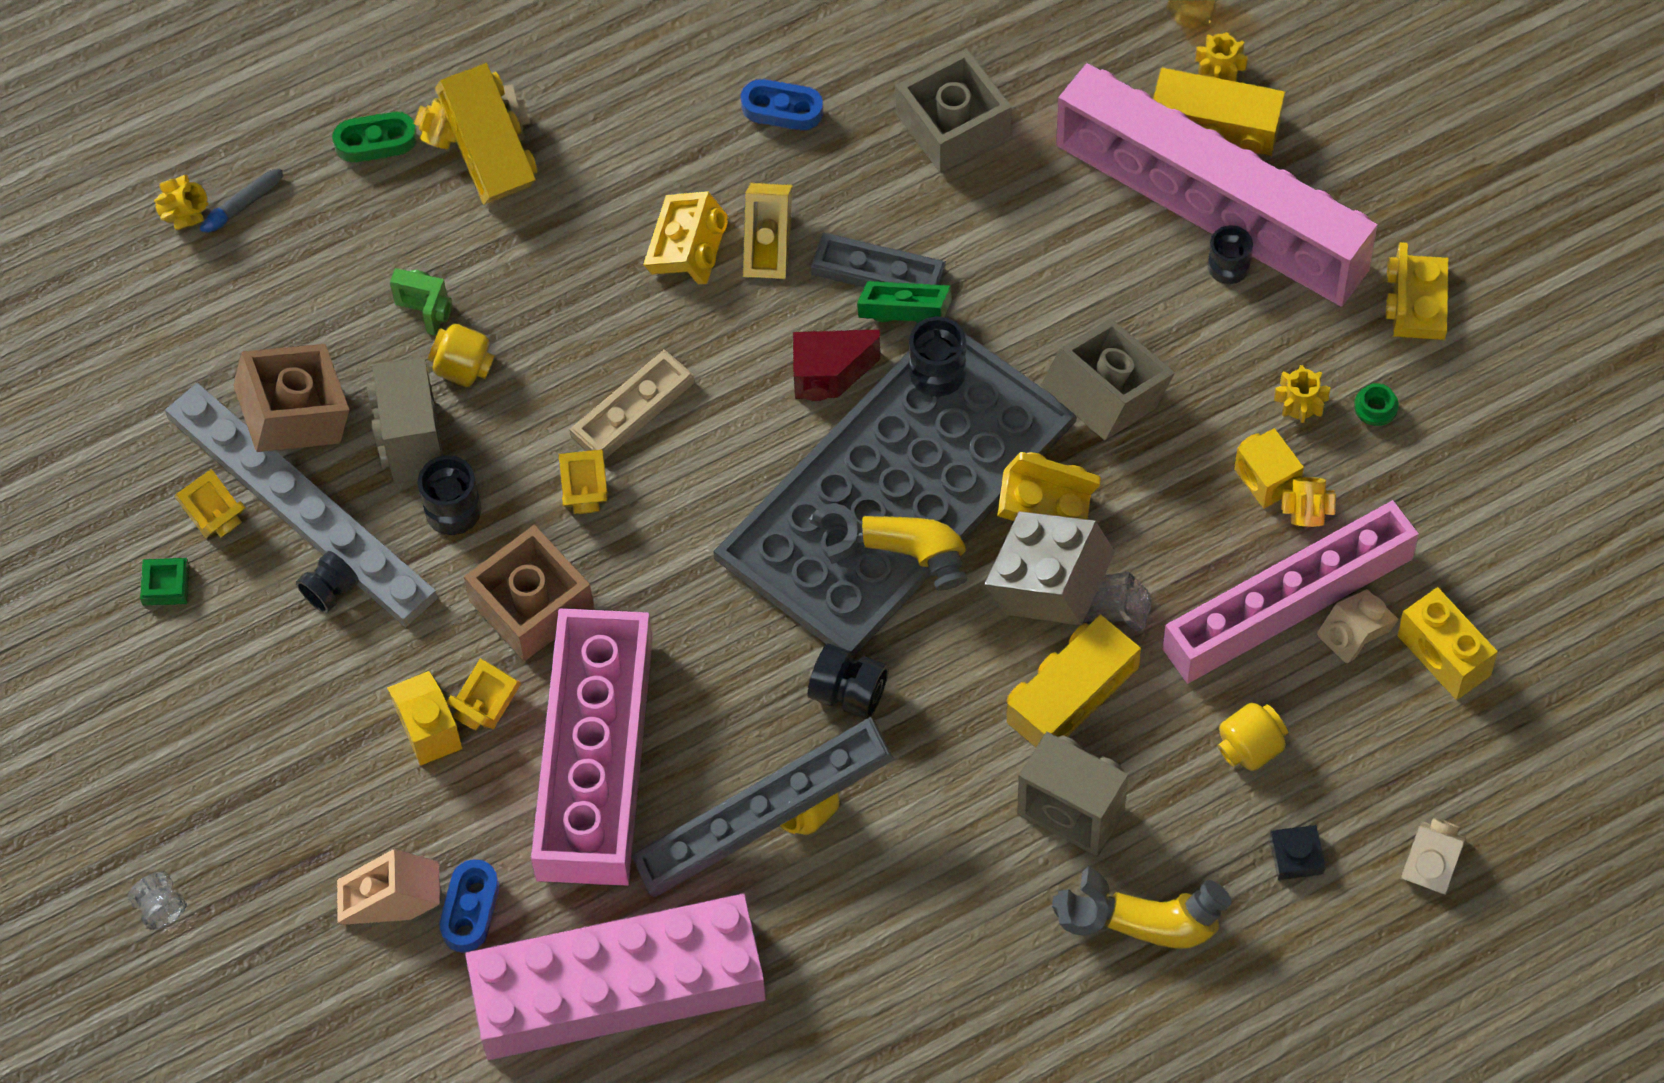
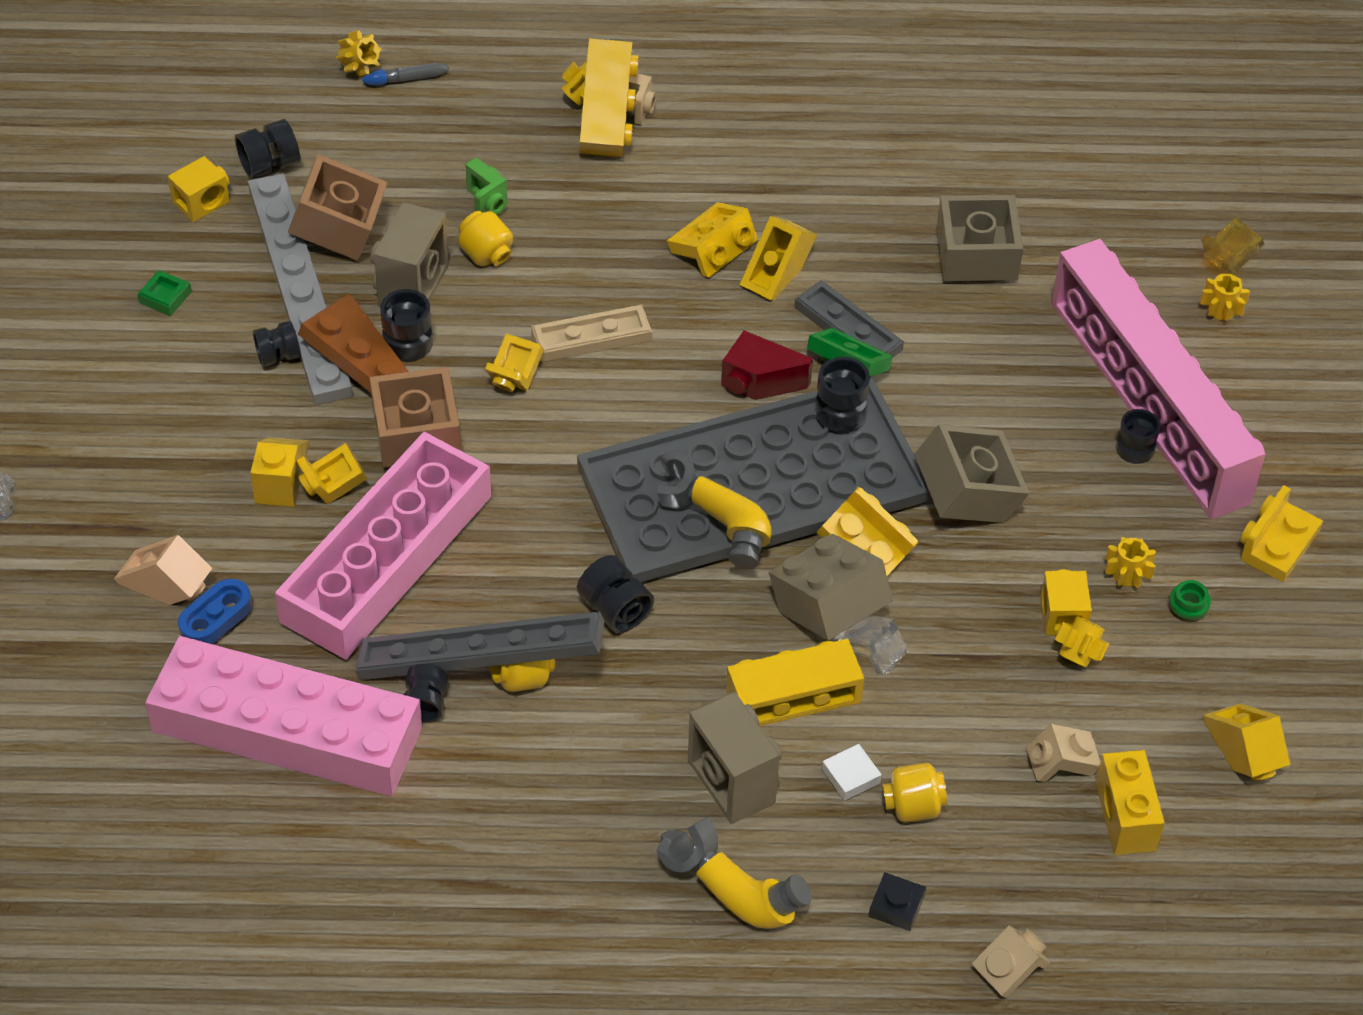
camera: 25 degrees right, 10 degrees down
(121, 445) = (199, 188): none -> yellow brick
(168, 358) = (256, 154): none -> black wheel
(210, 505) = (231, 255): yellow bracket -> none
(375, 137) = (529, 73): green plate -> none
(411, 544) = (351, 341): none -> dark orange wing
(731, 876) = (427, 684): none -> black wheel
(783, 104) = (850, 181): blue plate -> none
(1177, 745) = (851, 772): none -> white tile
(1236, 110) = (1207, 334): yellow brick -> none
(1289, 591) = (1019, 697): bright pink brick -> none
(1512, 522) = (1249, 740): none -> yellow slope

